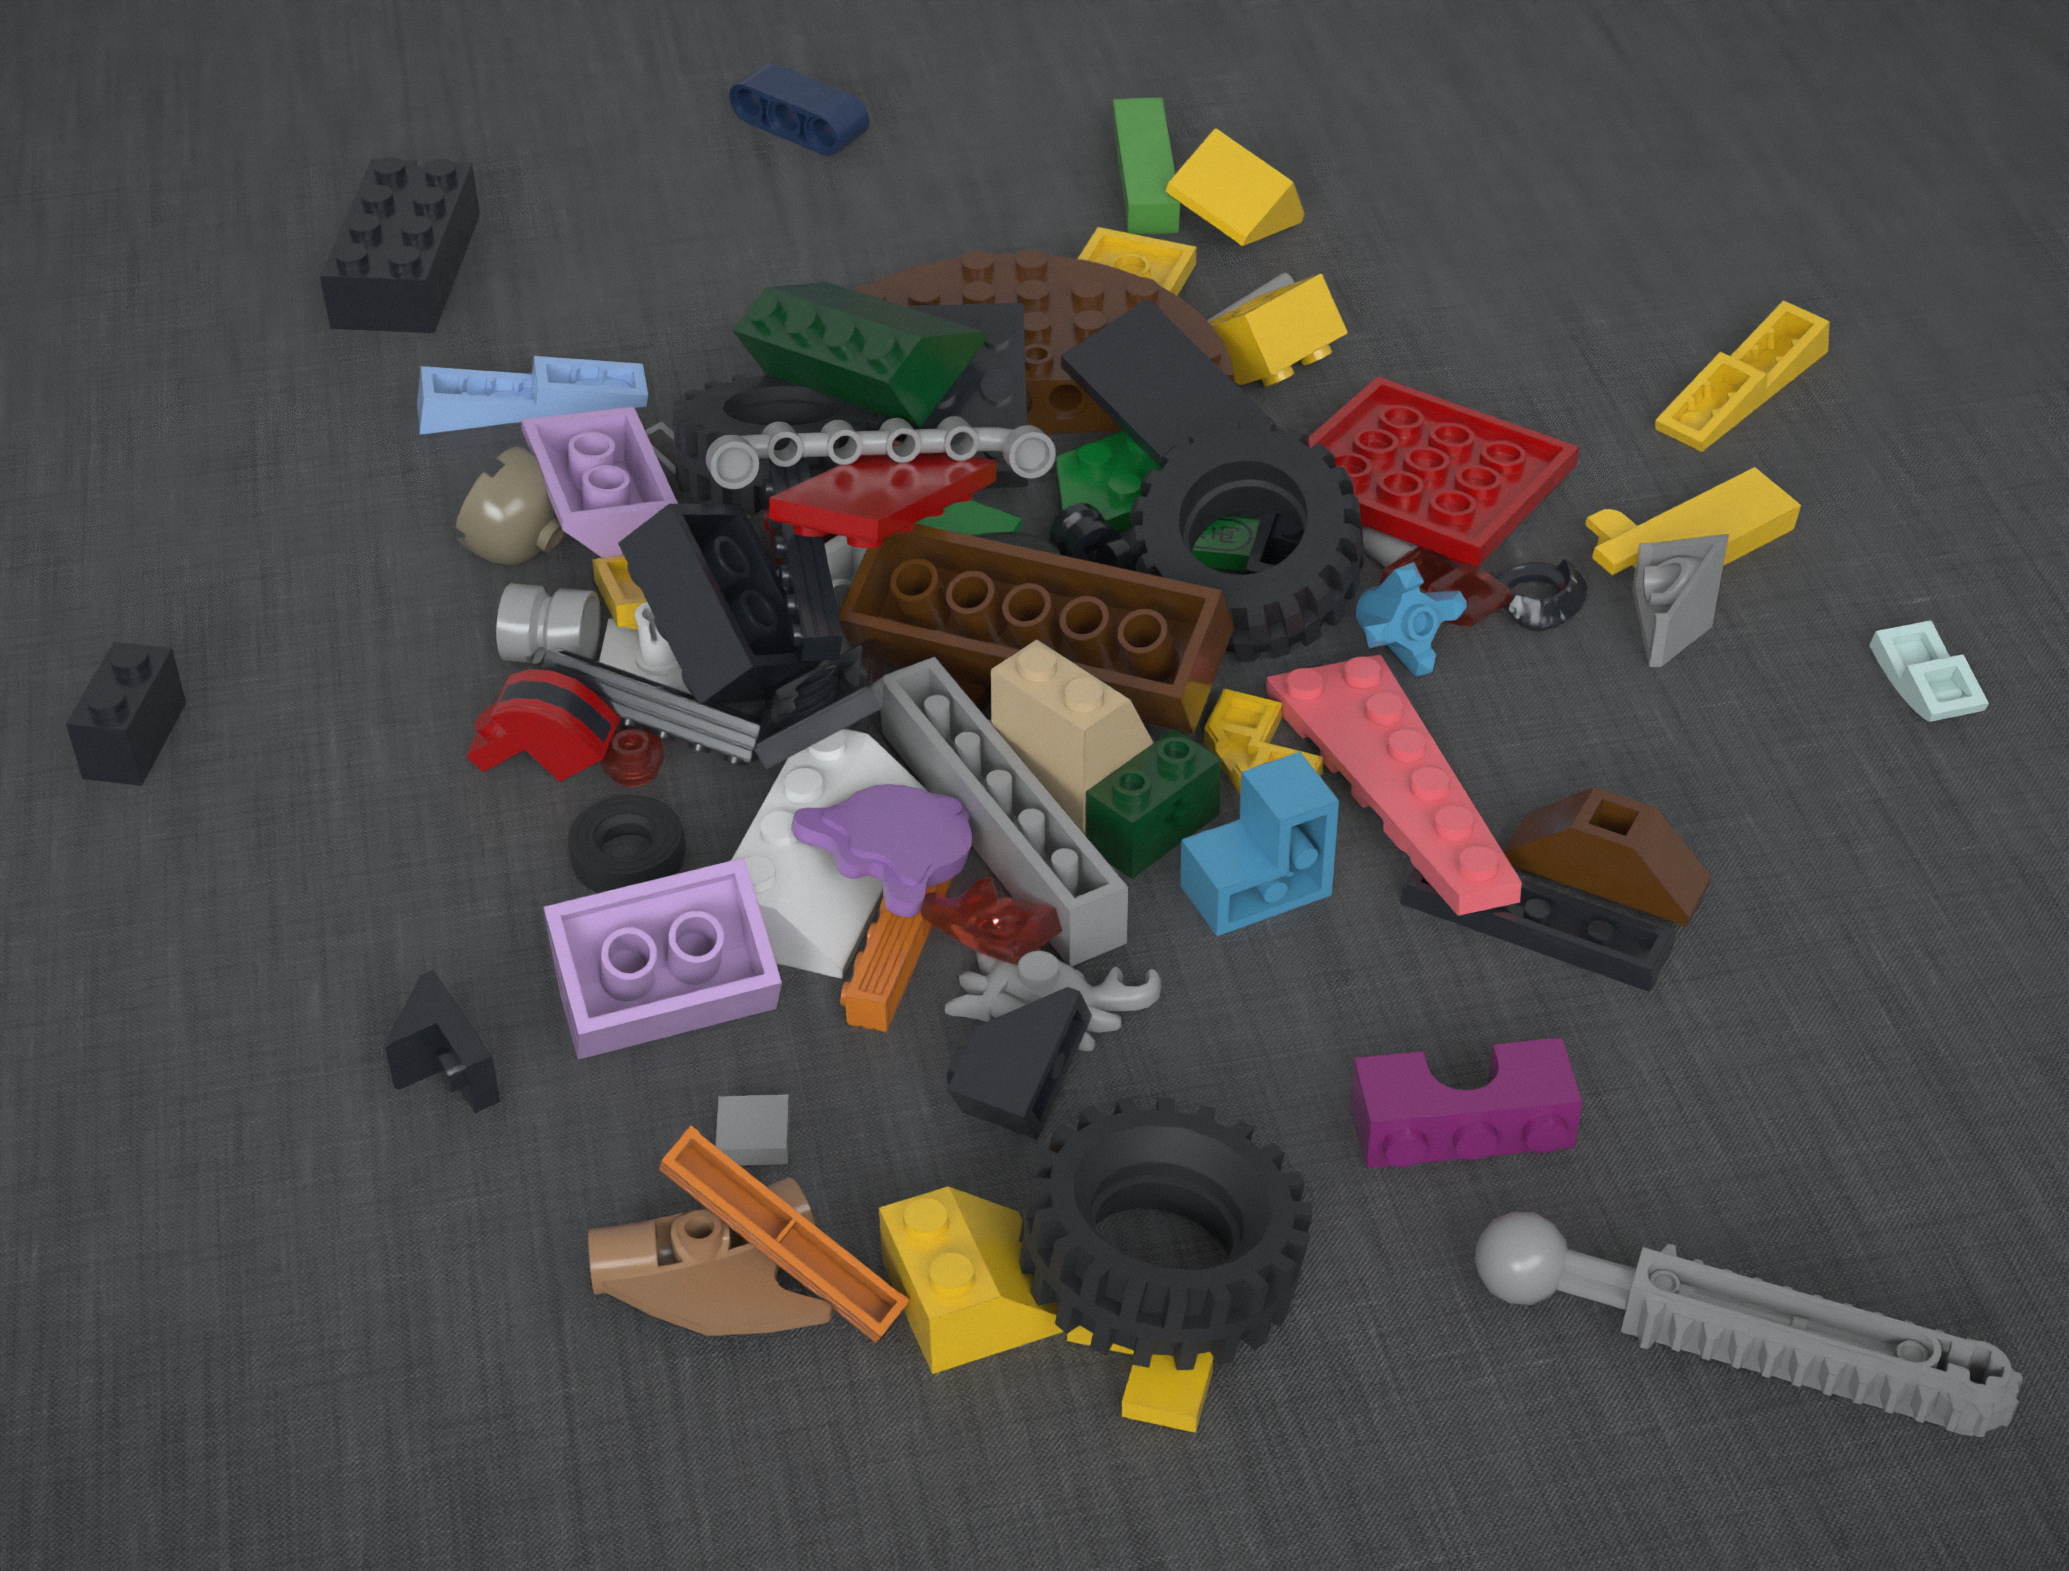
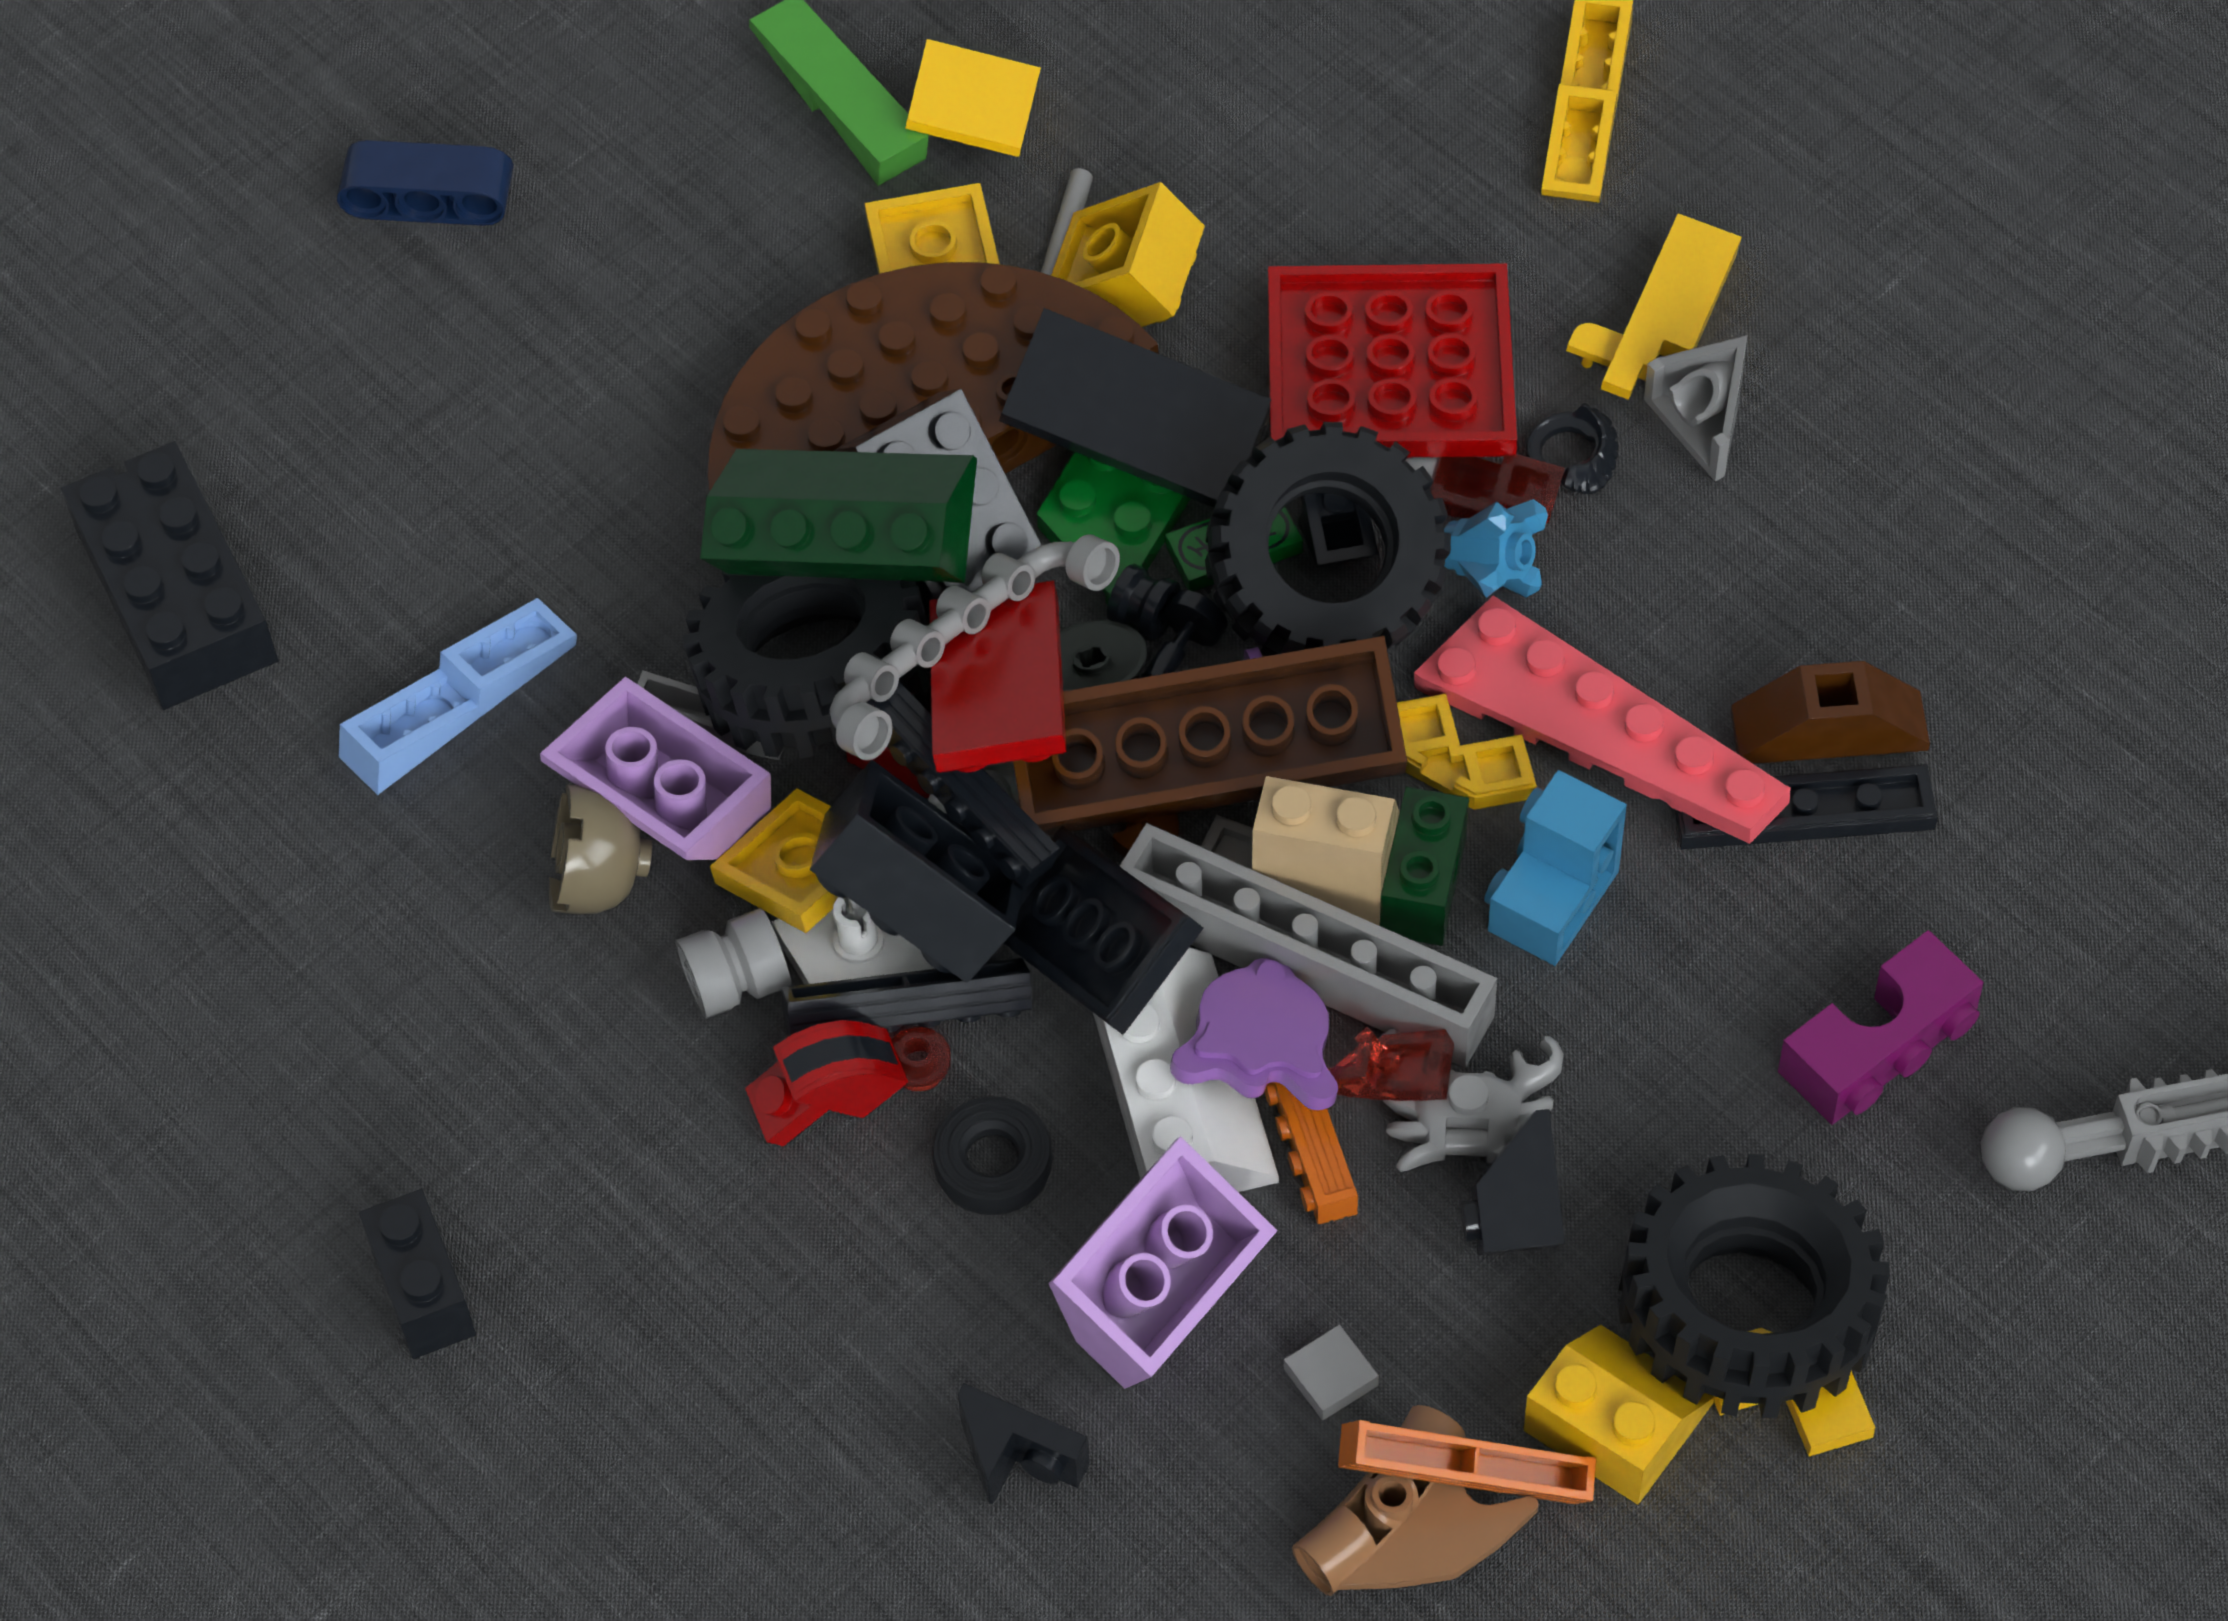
camera: 30 degrees left, 15 degrees up
(1926, 674) = (1946, 373): light aqua slope -> none

